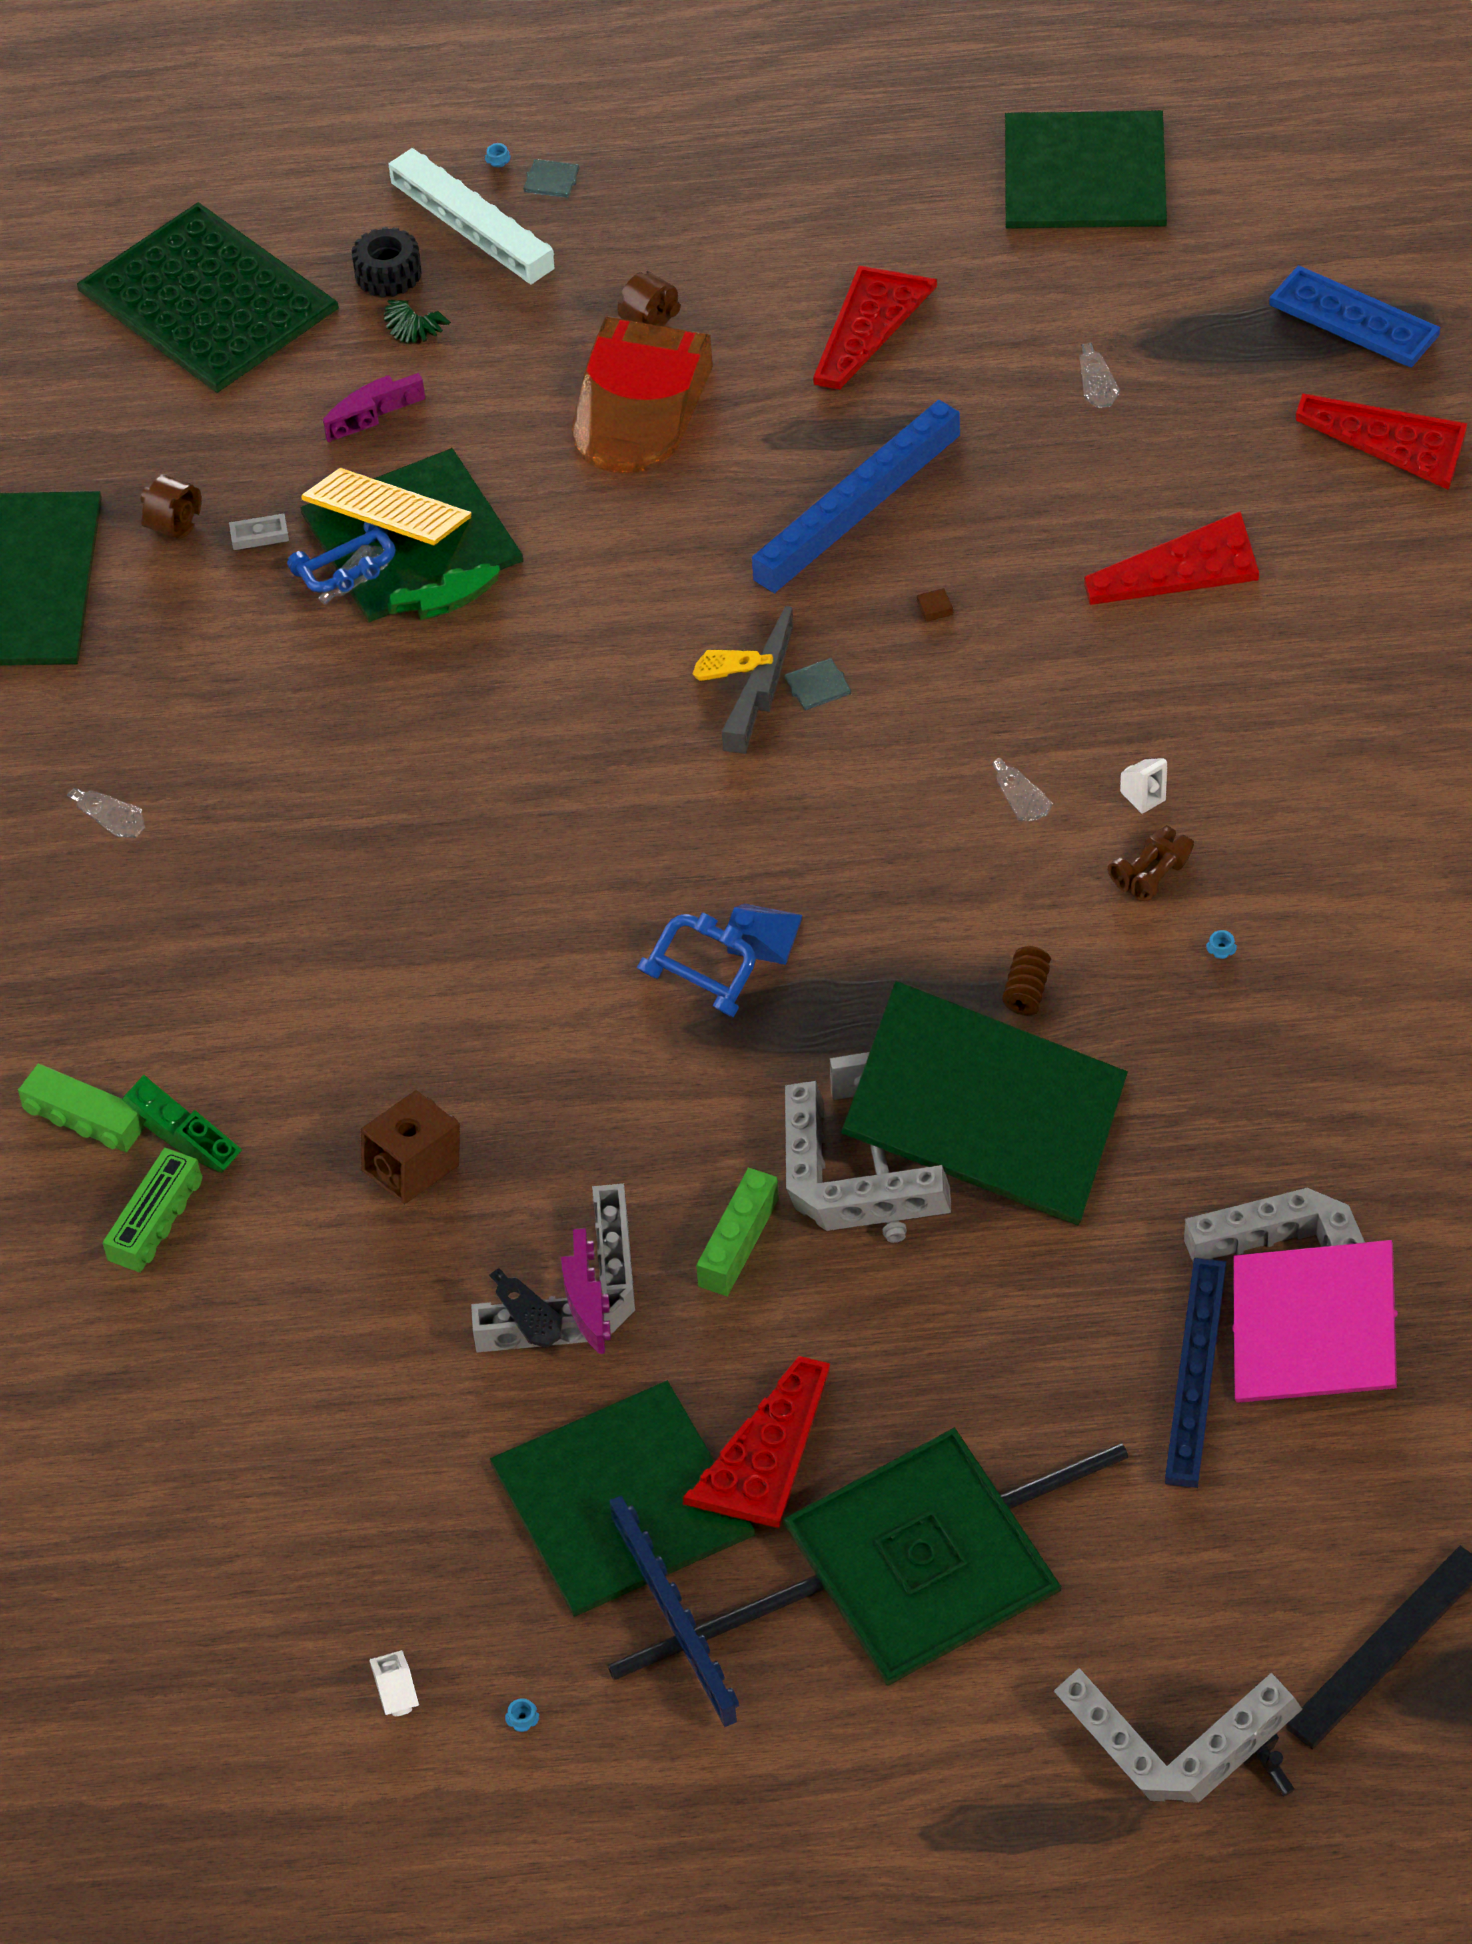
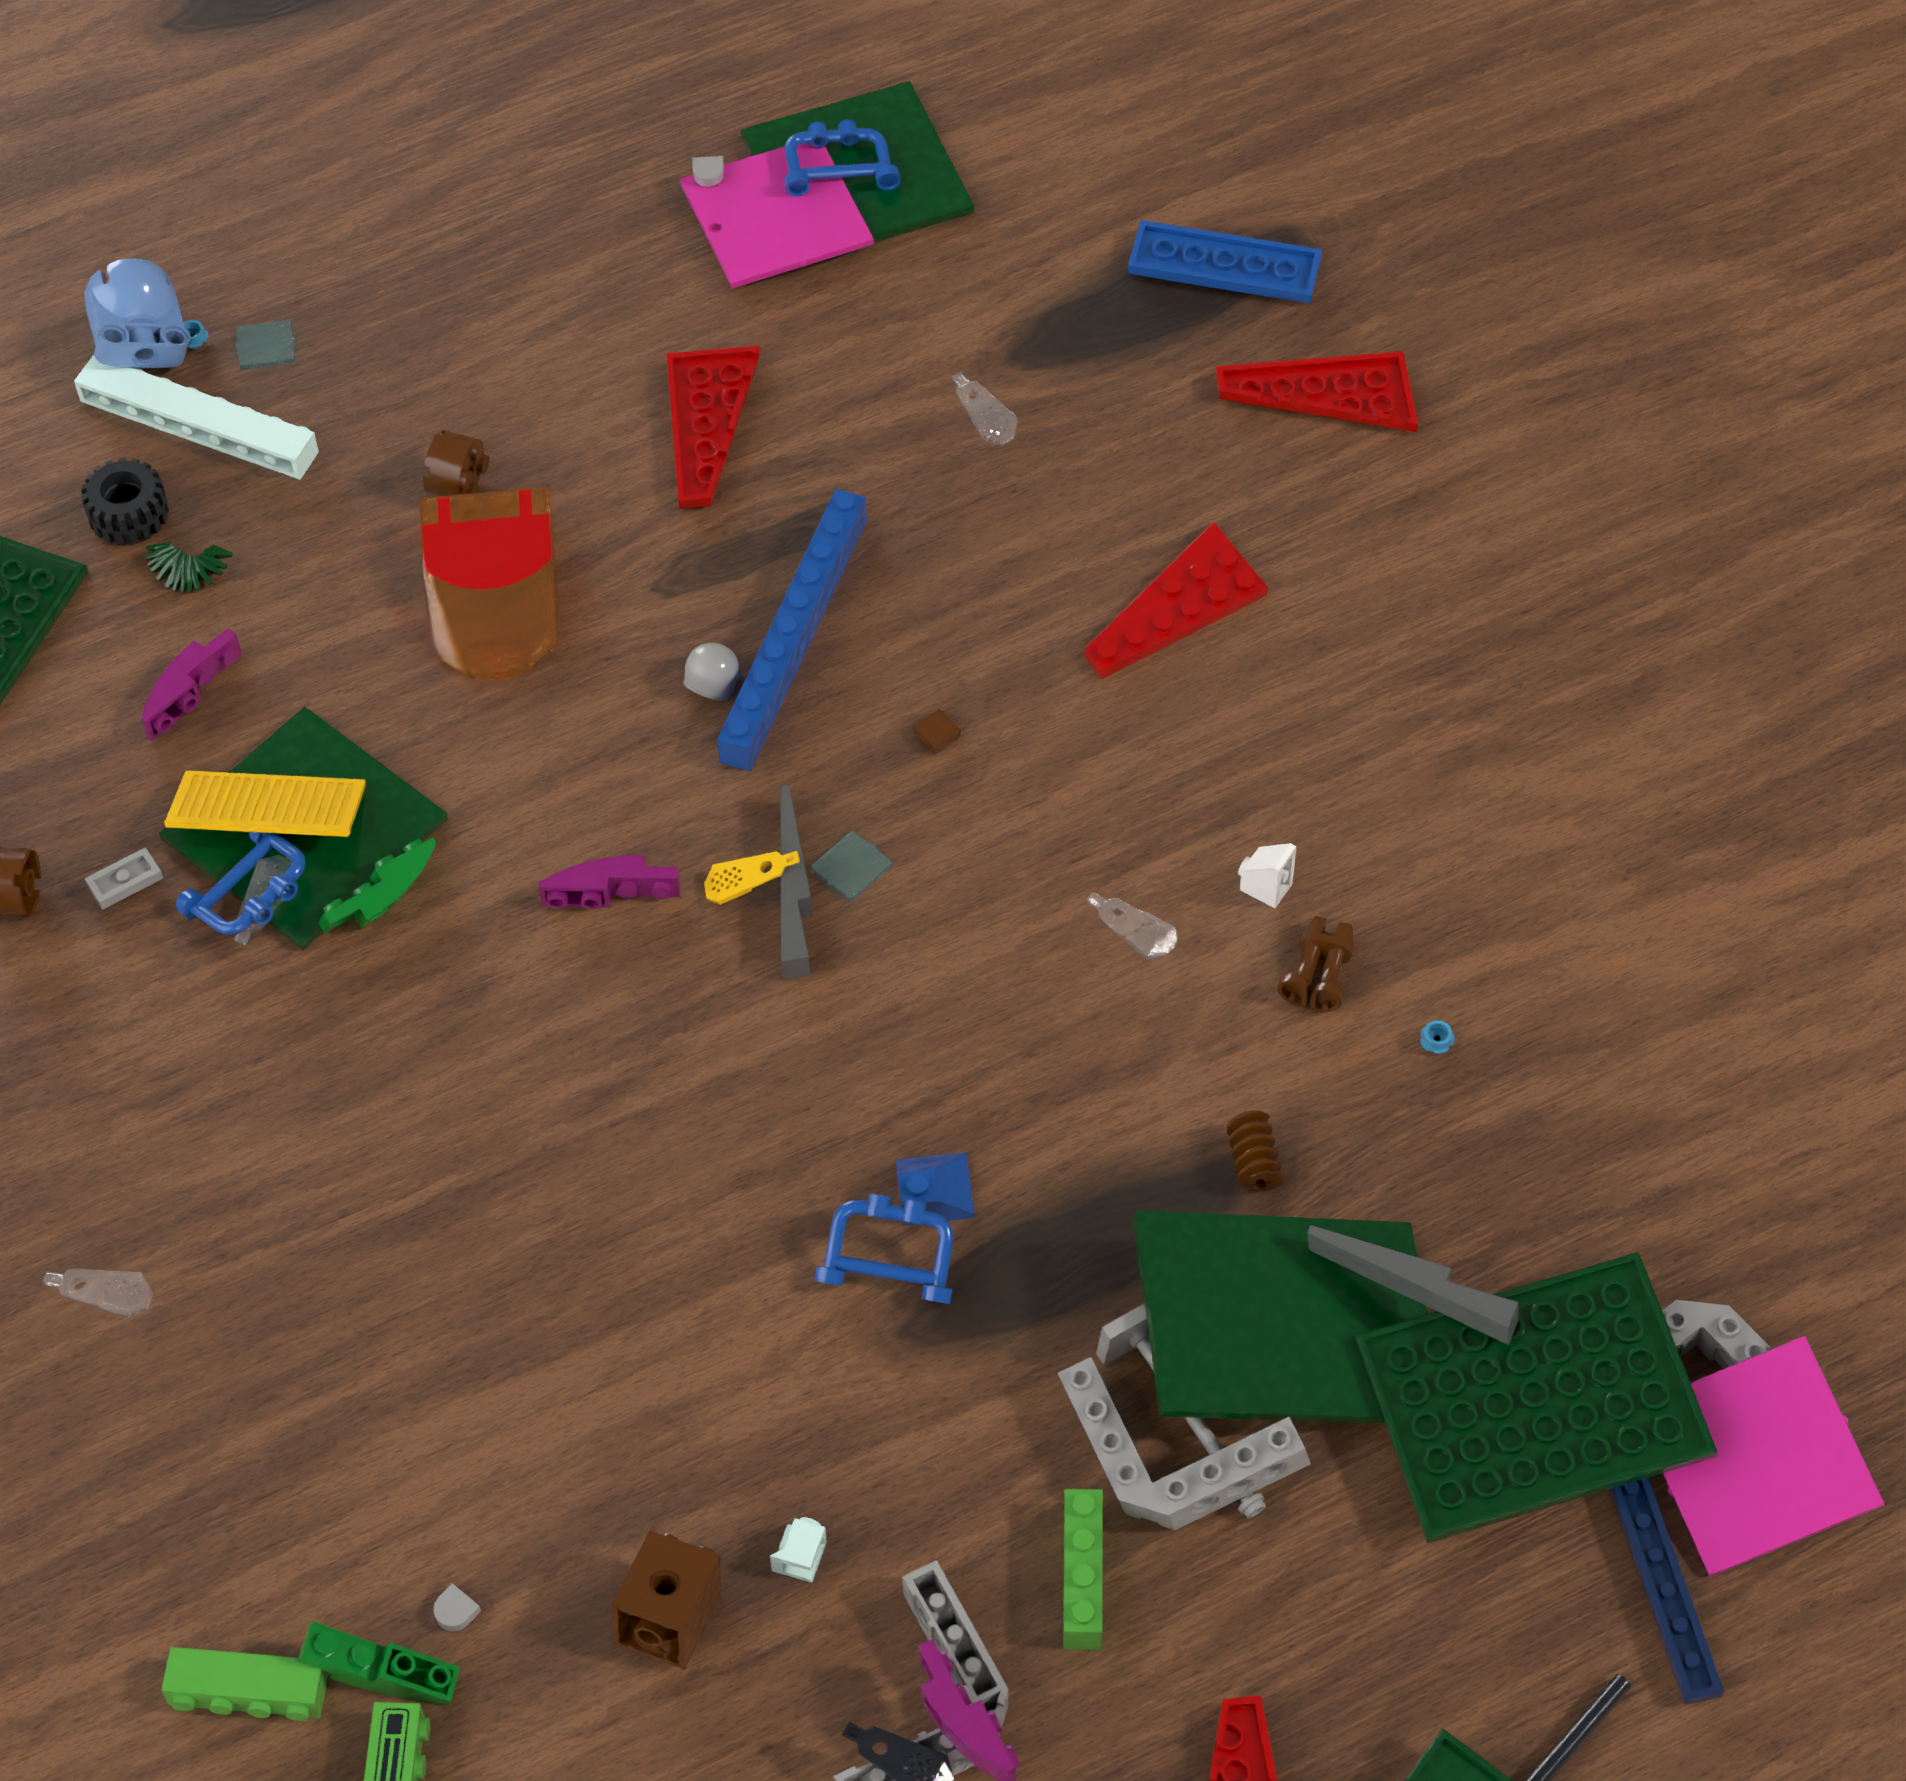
camera: 25 degrees left, 5 degrees up
(257, 1110) = (455, 1609): none -> light grey tile
(455, 126) = (135, 316): none -> medium blue piece
(531, 1150) = (800, 1549): none -> light aqua window
(612, 636) = (597, 880): none -> magenta slope
(776, 508) = (712, 671): none -> light grey helmet
(959, 135) = (708, 170): none -> light grey tile
(1001, 182) = (766, 231): none -> dark pink piece
(1061, 132) = (798, 178): none -> blue bar
(1099, 1104) = (1420, 1281): none -> dark grey slope
(1152, 1218) = (1560, 1413): none -> dark green tile

